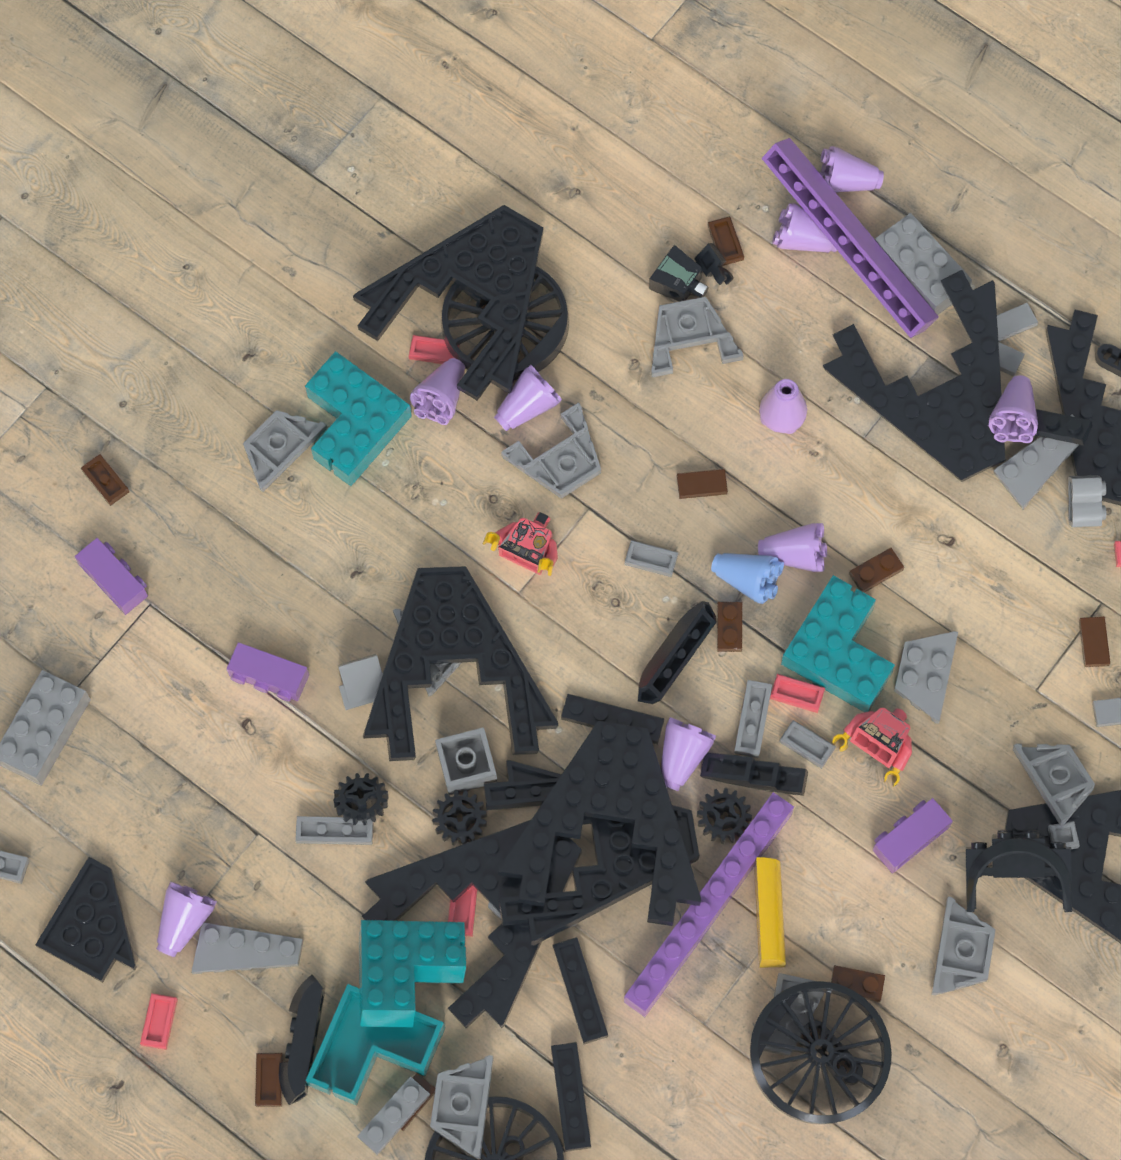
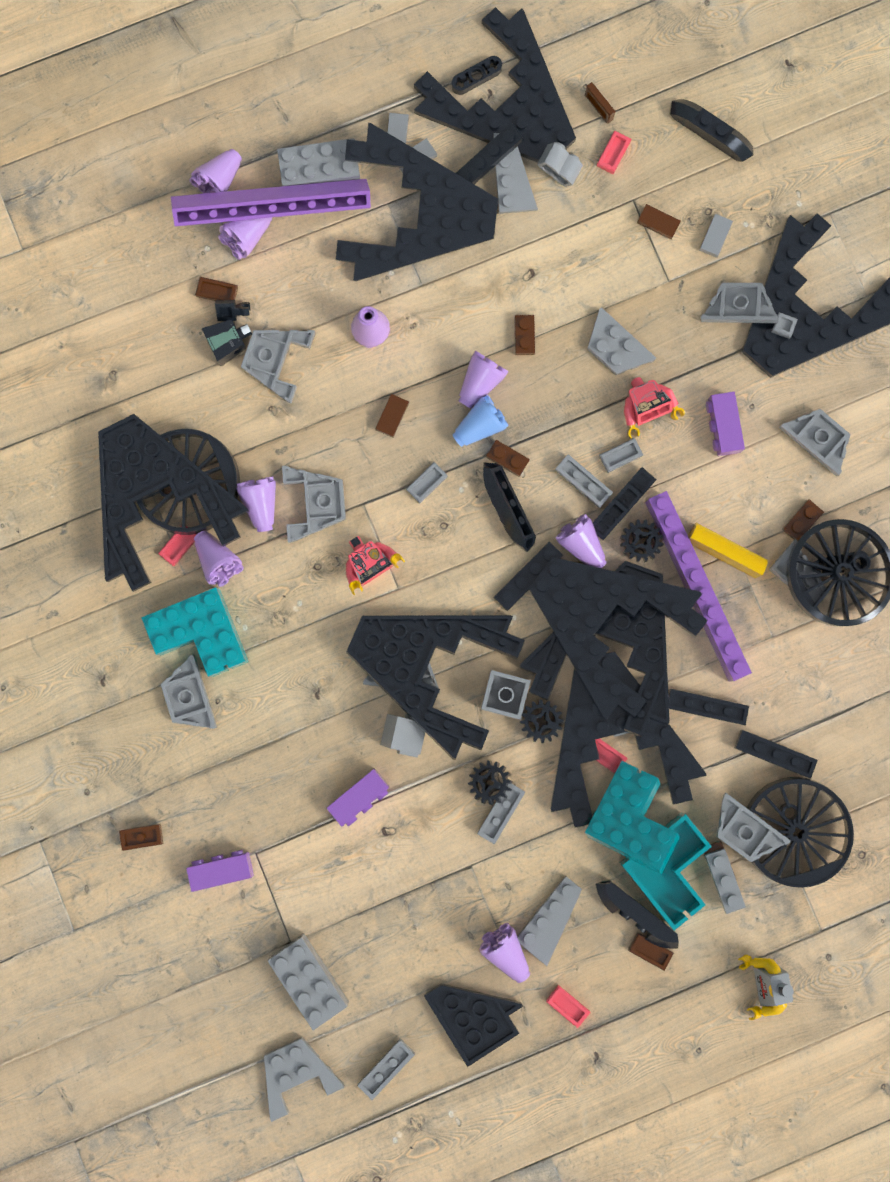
camera: 60 degrees left, 15 degrees up
(797, 693) = (581, 440): coral tile -> none
(827, 650) = (567, 403): teal piece -> none
(1015, 413) = (474, 169): lavender cone -> none
(1018, 857) = (785, 362): black piece -> none

